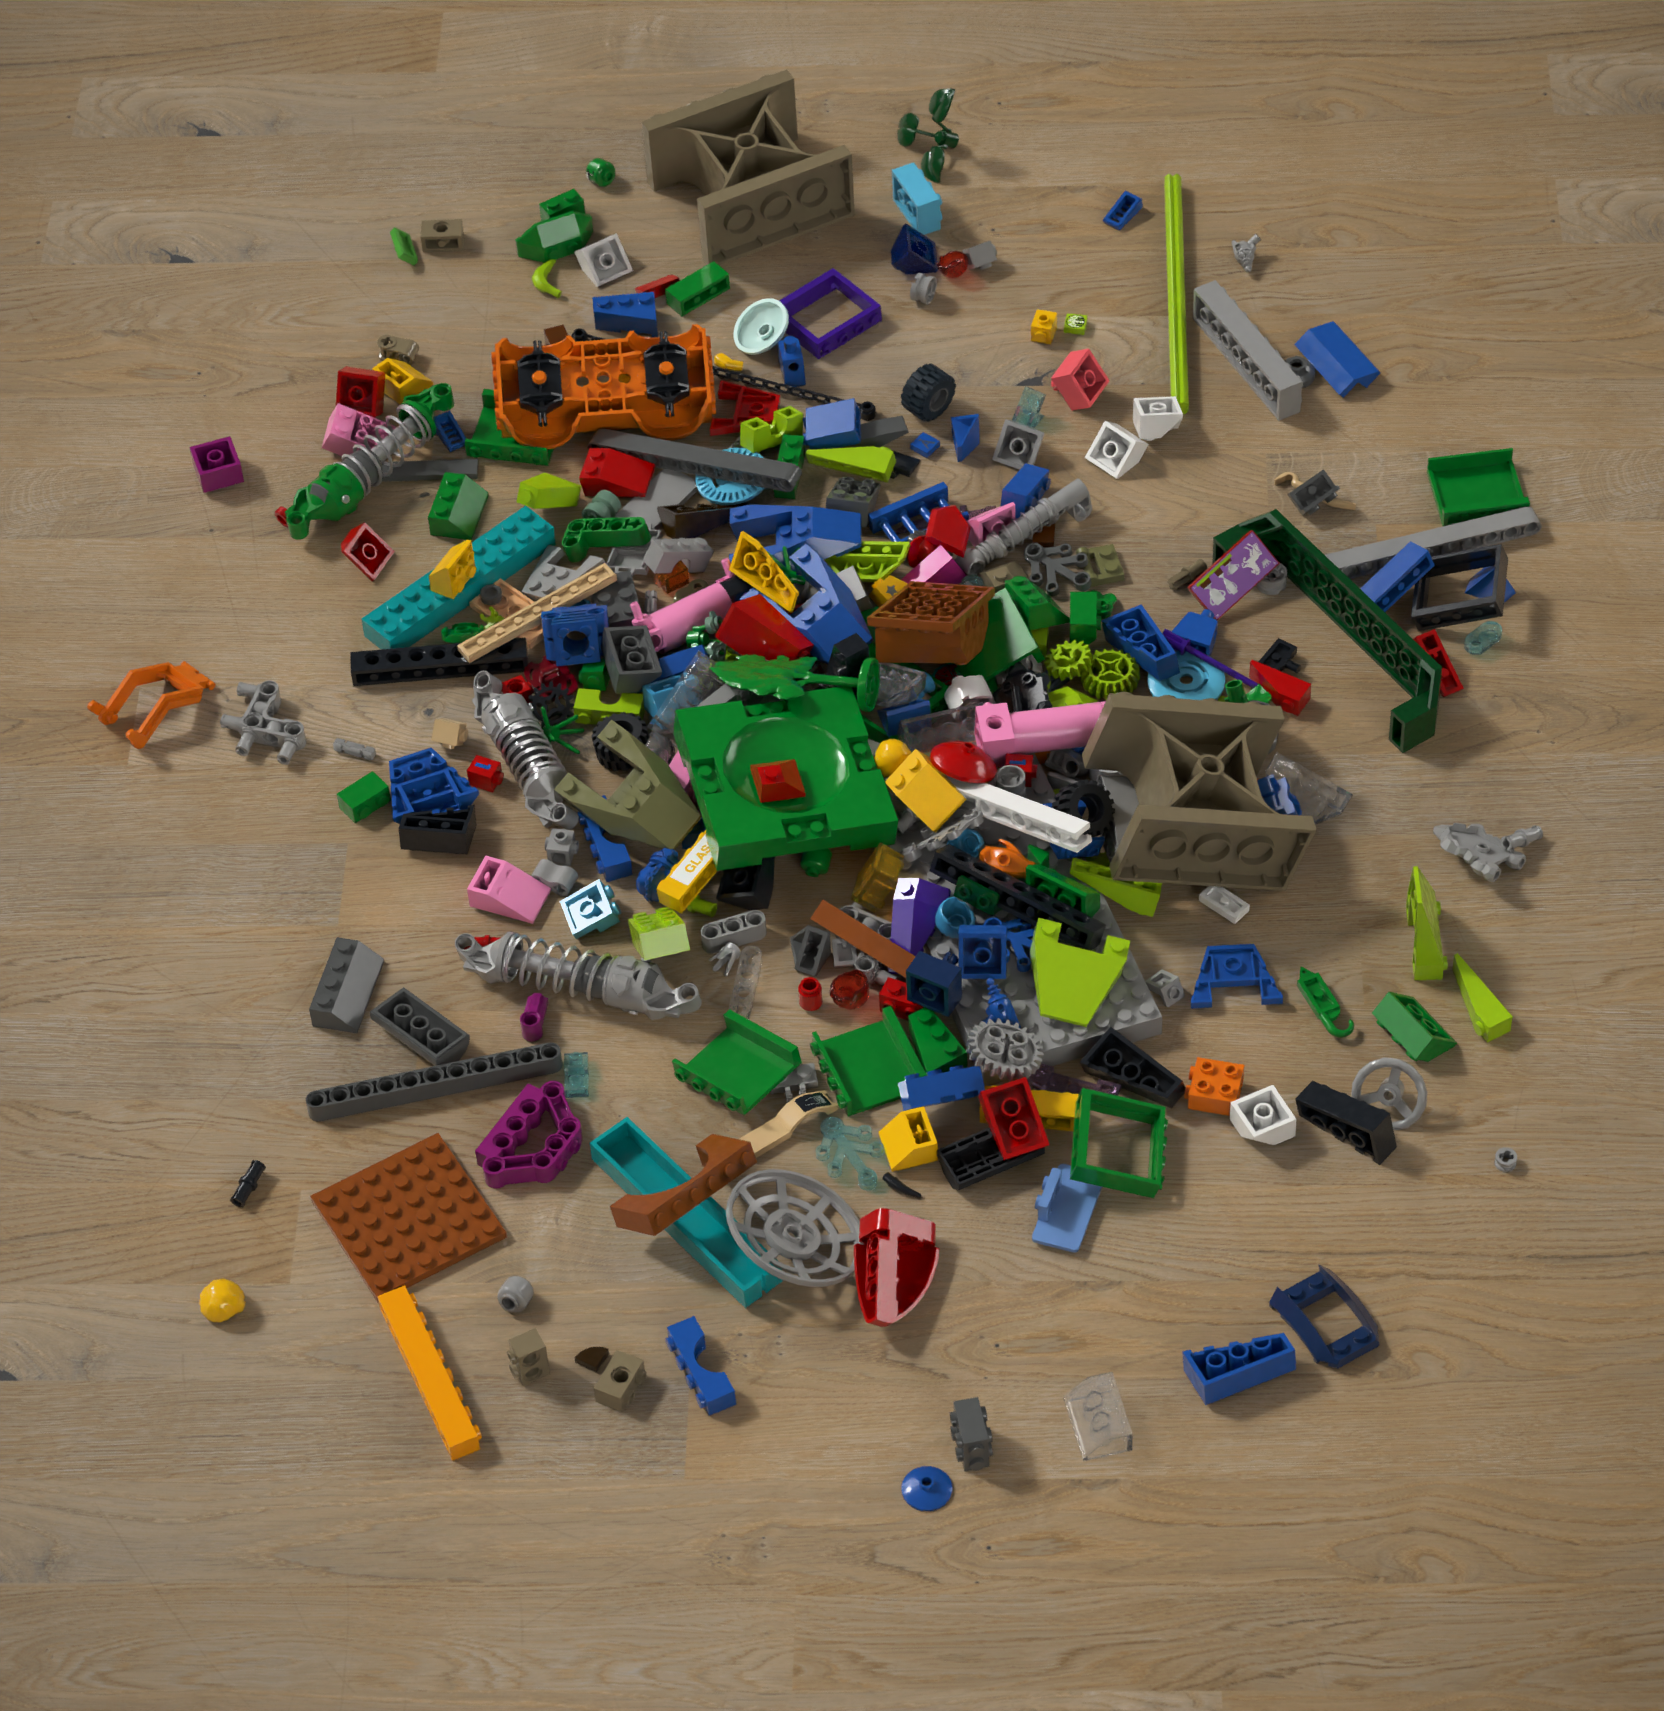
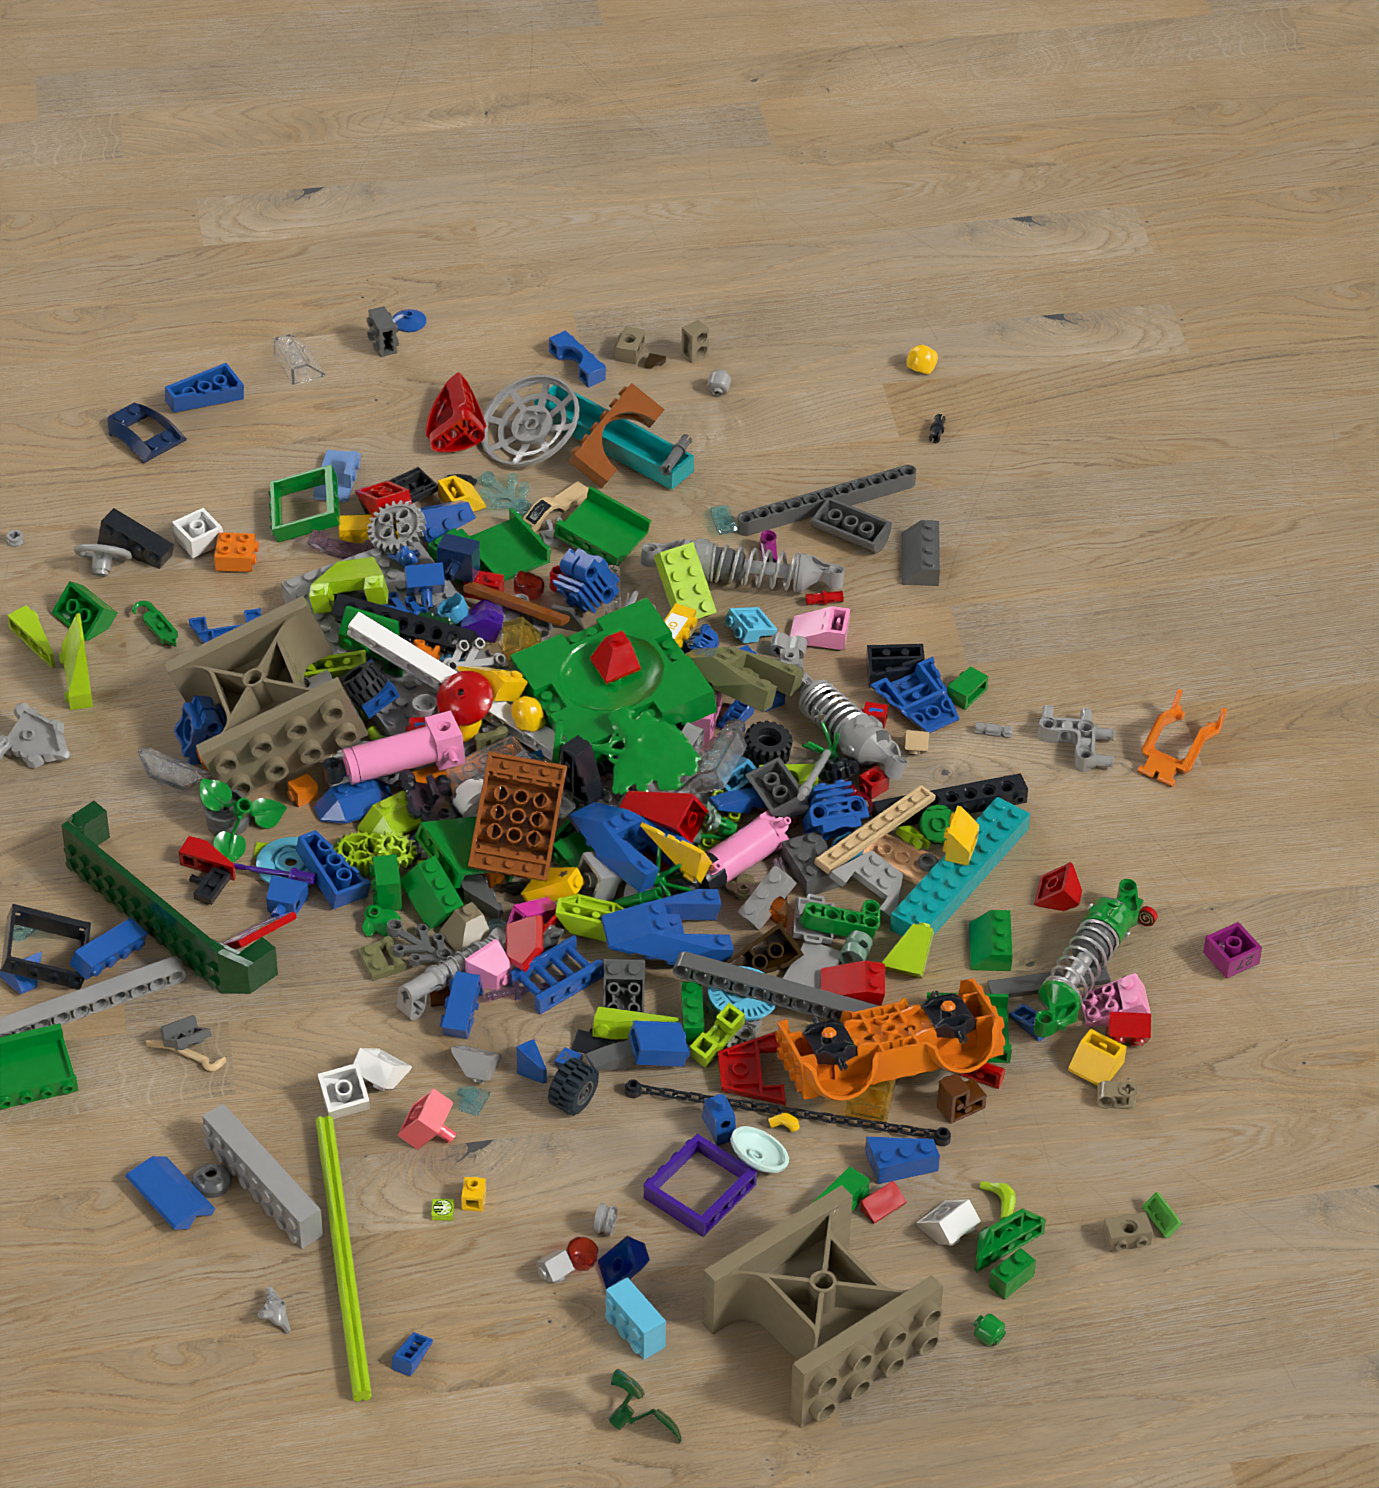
camera: 165 degrees right, 5 degrees down
(408, 1216) = (814, 425): dark orange plate -> none
(429, 1373) = (763, 337): light orange brick -> none
(498, 1148) = (753, 484): magenta brick -> none
(603, 626) = (806, 788): none -> light grey bar
(609, 1142) = (678, 450): none -> dark grey pin
(778, 959) = (586, 580): none -> blue piece
(1125, 1064) = (296, 552): black wedge -> none
(1187, 574) = (299, 956): dark tan axle -> none
(1433, 646) = (70, 895): red slope -> none

